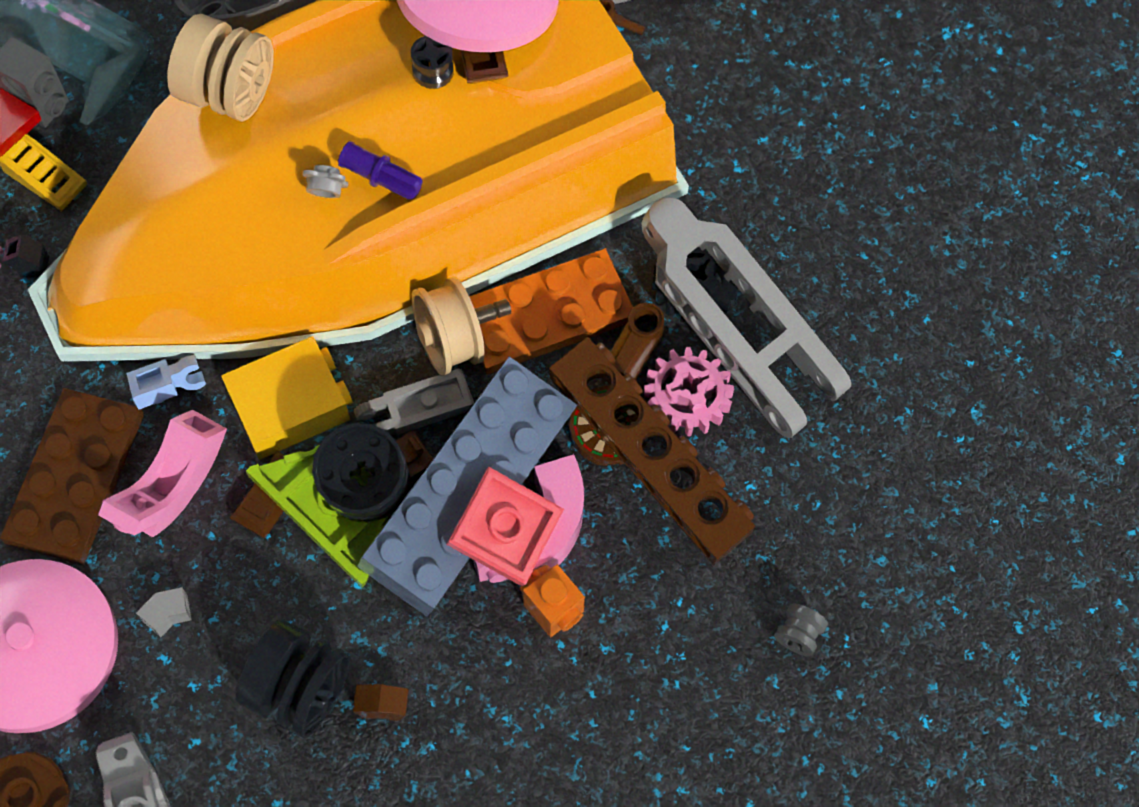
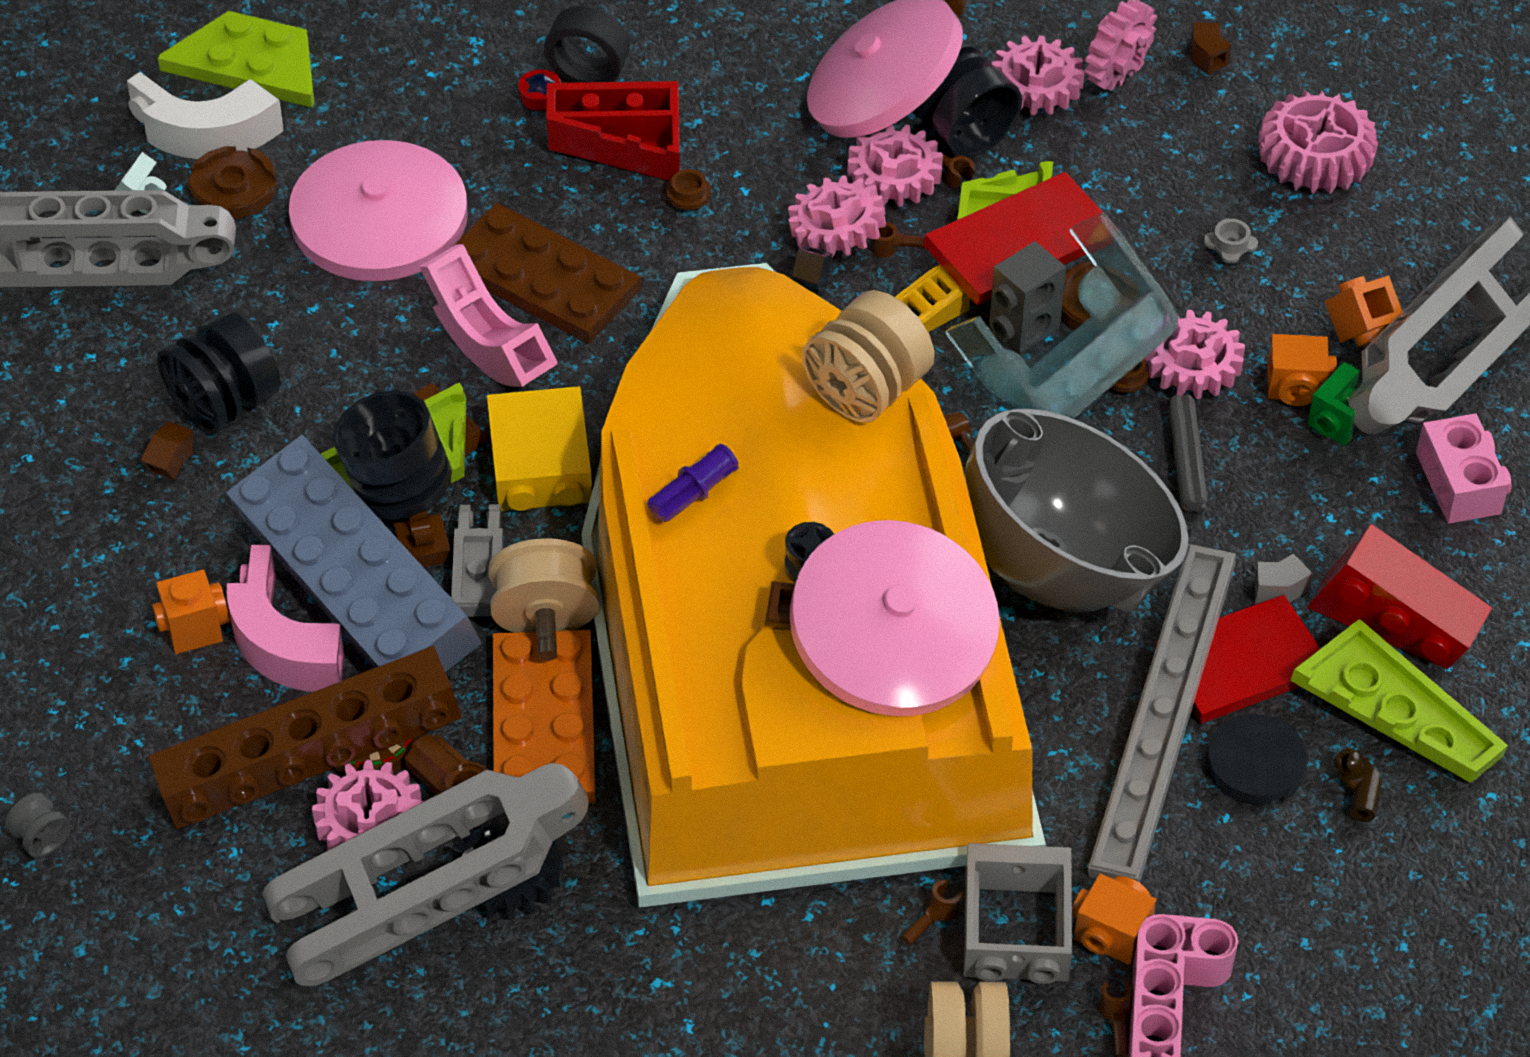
camera: 110 degrees right, 15 degrees down
(159, 380) = (611, 348): light blue plate -> none
(165, 610) = (355, 311): light grey piece -> none
(324, 181) = (696, 430): light grey plate -> none
(505, 526) = (275, 564): coral tile -> none

